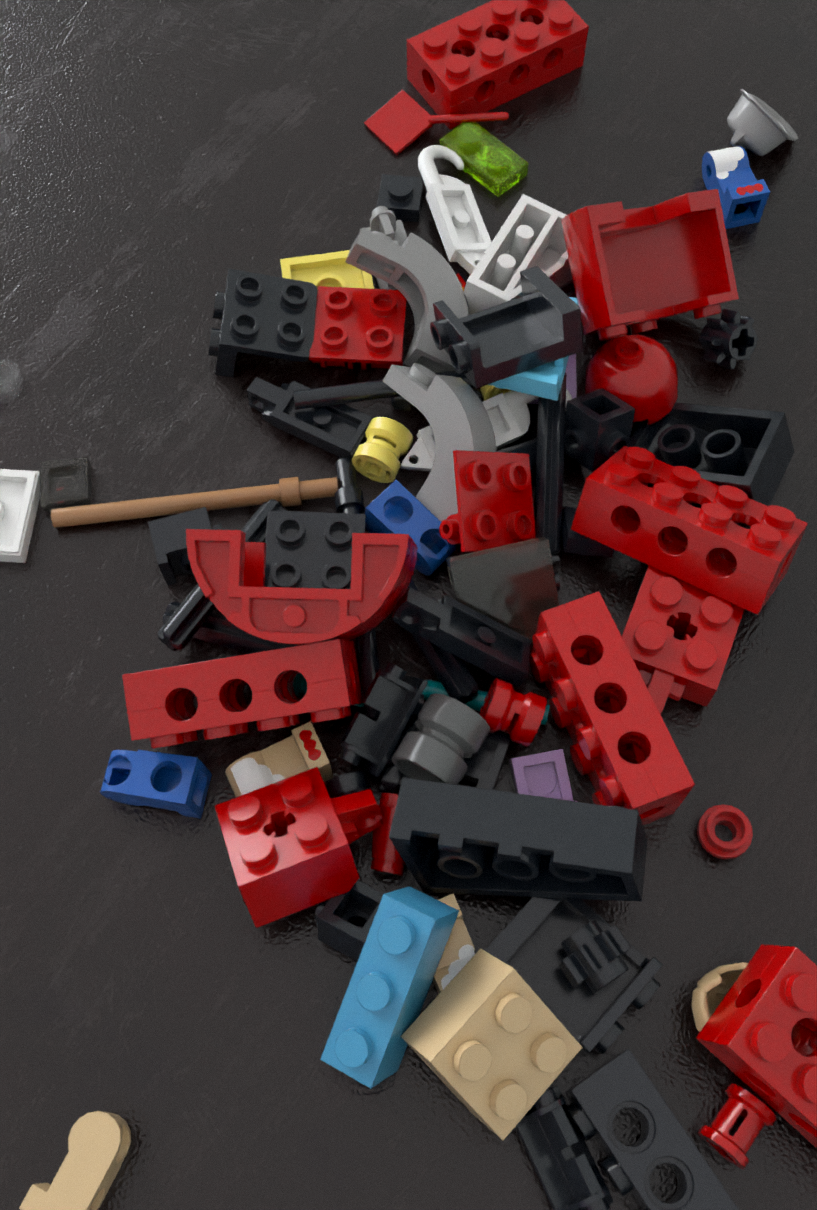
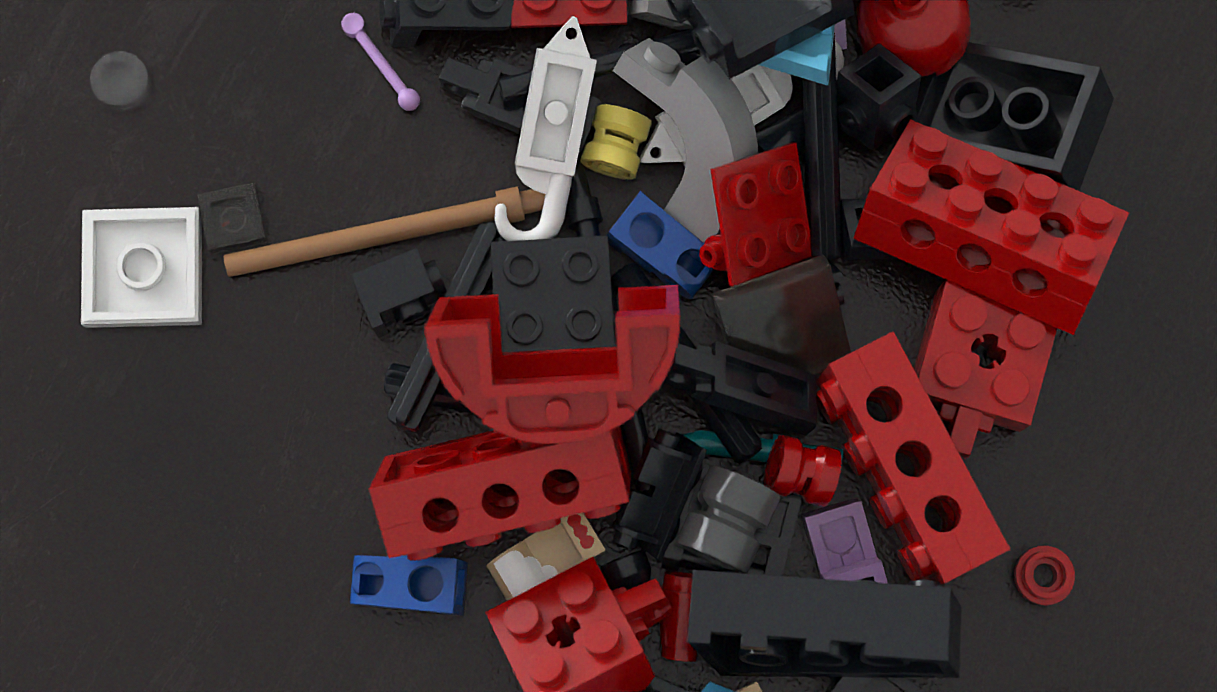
camera: 10 degrees left, 15 degrees up
(189, 359) = (354, 27): none -> lavender hinge
(329, 427) = (552, 130): none -> white plate

